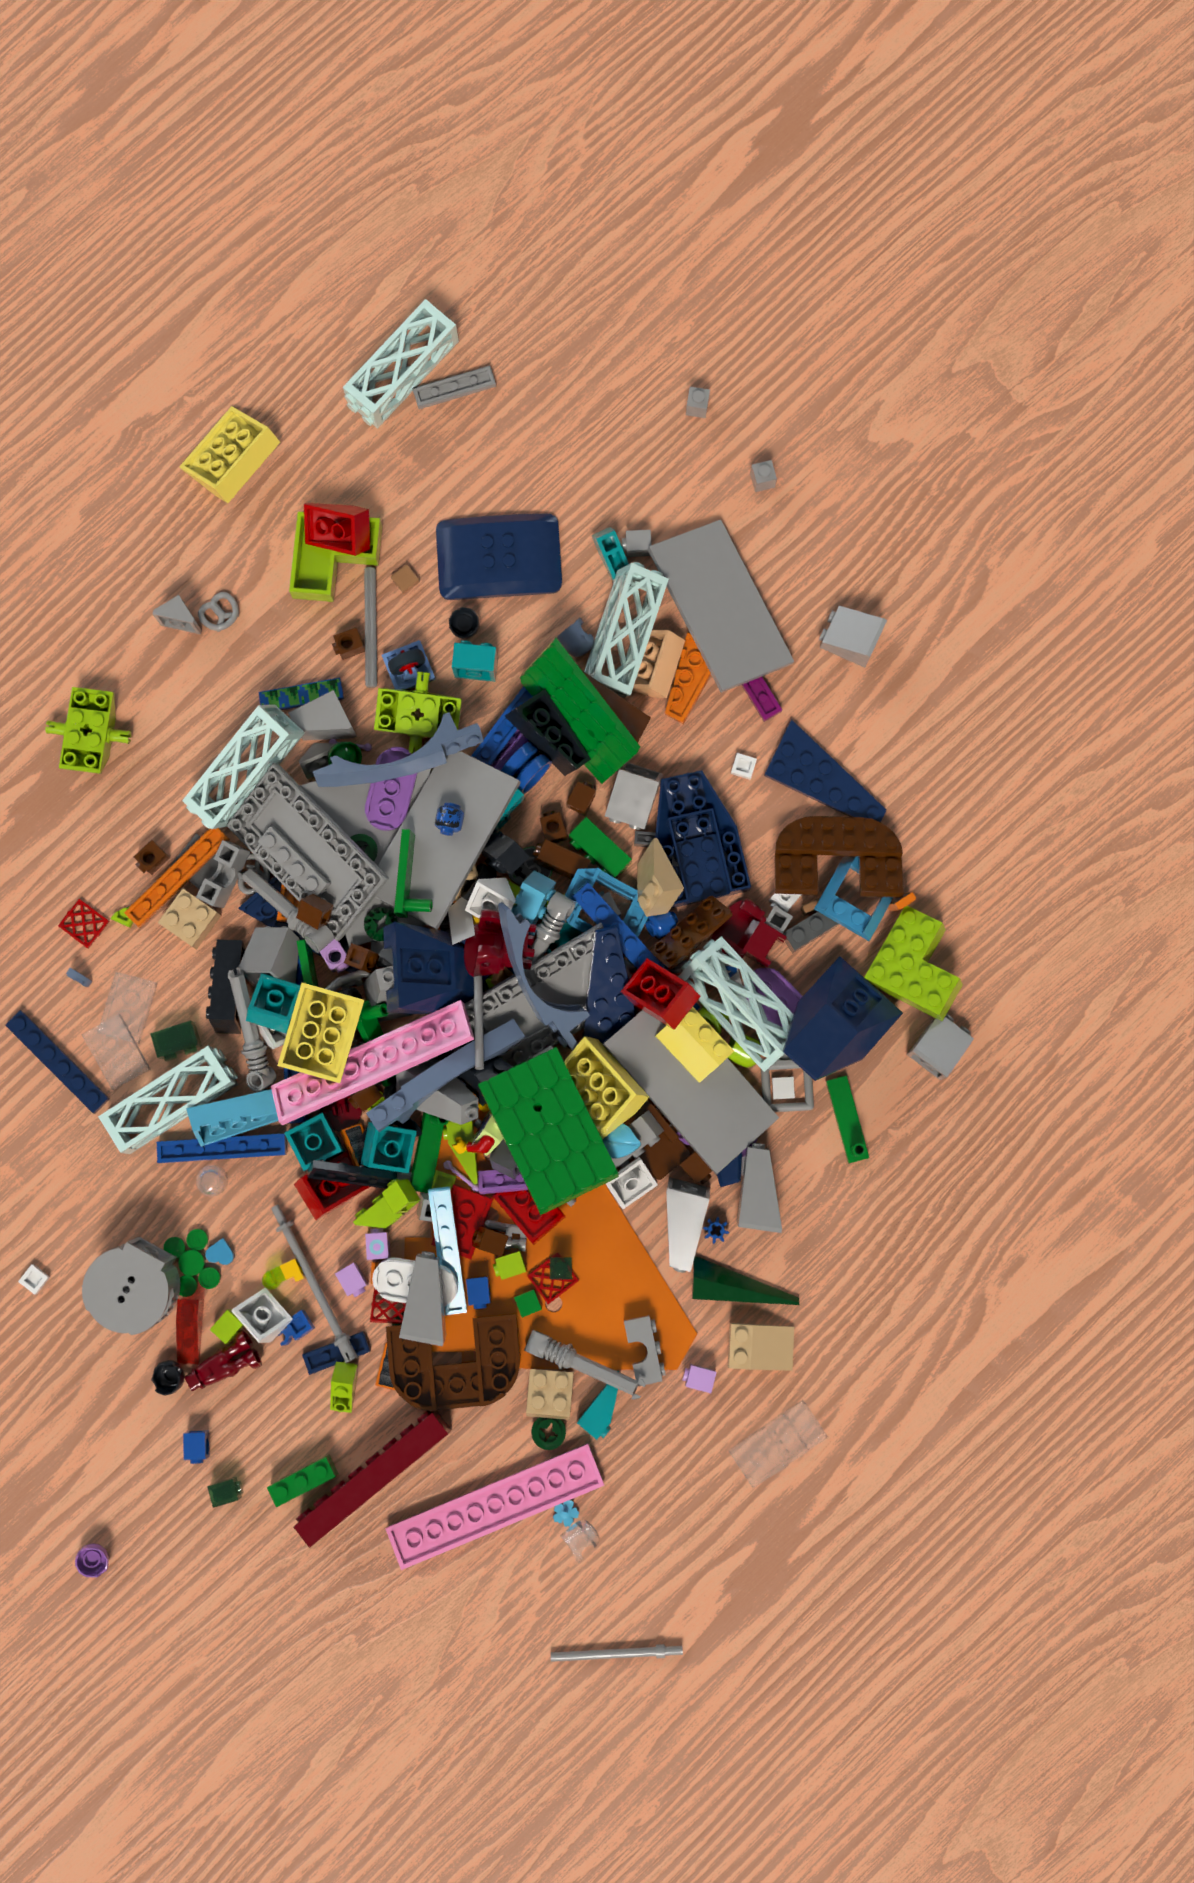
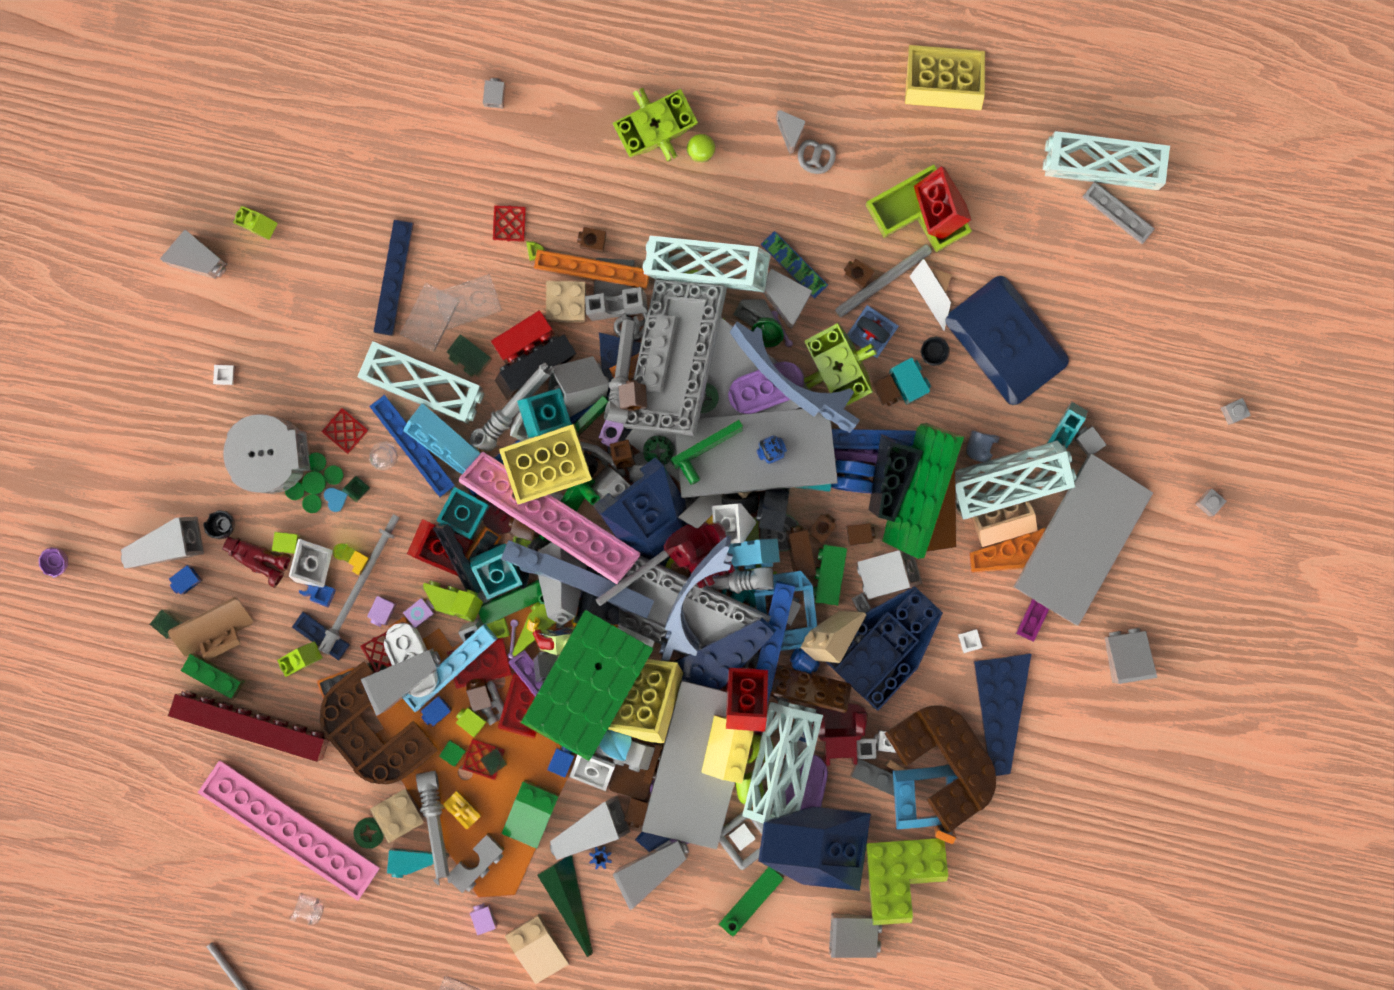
camera: 55 degrees right, 5 degrees up
(73, 974) = (466, 246): sand blue tile -> none
(138, 706) = (701, 148): none -> lime helmet
(150, 1437) = (170, 542): none -> slope
(155, 1196) = (344, 421): none -> red window
(189, 1330) = (264, 515): clear red slope -> none
(193, 978) = (522, 337): none -> red brick
(224, 1227) = (356, 489): none -> dark green tile
(260, 1451) = (212, 630): none -> medium nougat bracket
(410, 592) = (931, 292): none -> white sticker
(470, 689) = (886, 391): none -> reddish brown brick
(565, 1513) = (318, 885): medium azure plant -> none
(585, 1329) = (461, 810): none -> yellow hips
(603, 1206) = (561, 761): none -> blue brick
(632, 1268) = (530, 814): none -> slope

